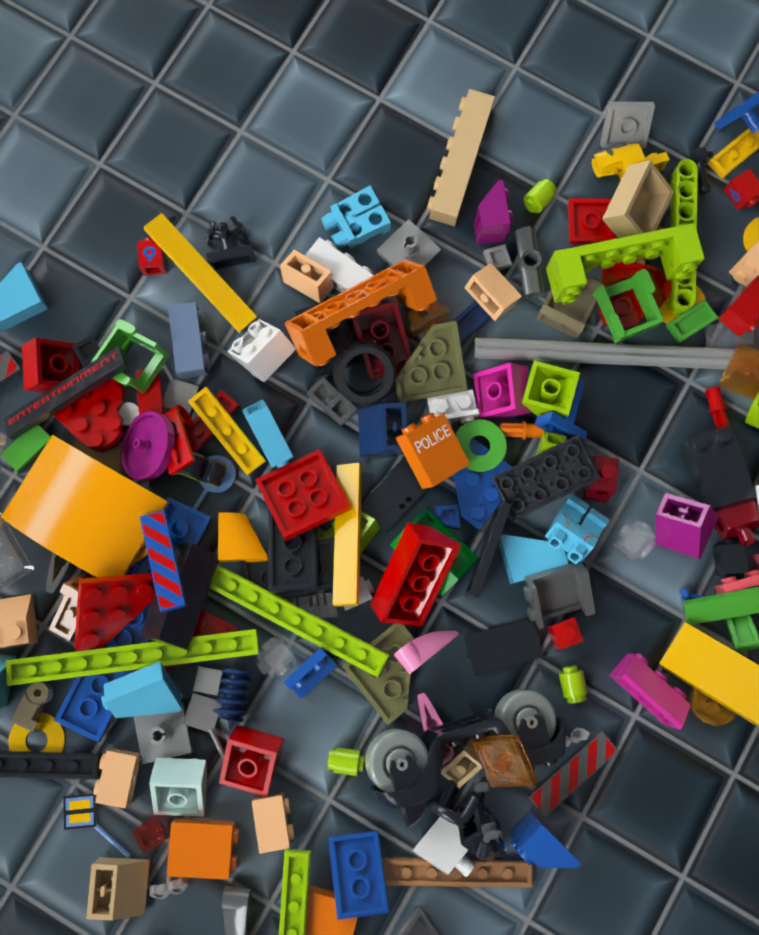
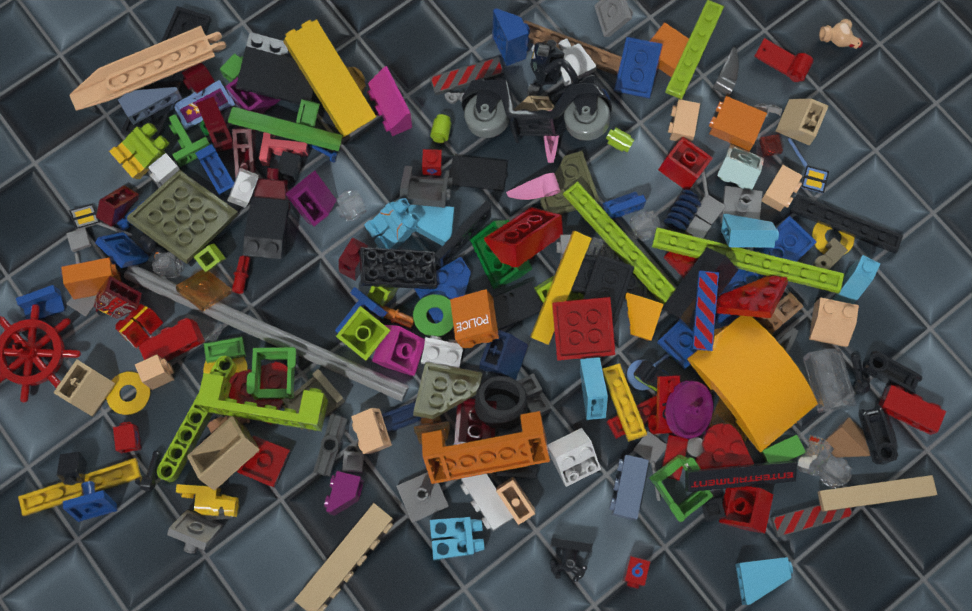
camera: 155 degrees left, 5 degrees down
(200, 272) = (601, 539): yellow tile -> none
(449, 515) = (478, 276): blue tile -> none
(504, 761) = (514, 89): clear orange plate -> none
(540, 196) = (295, 499): lime brick -> none

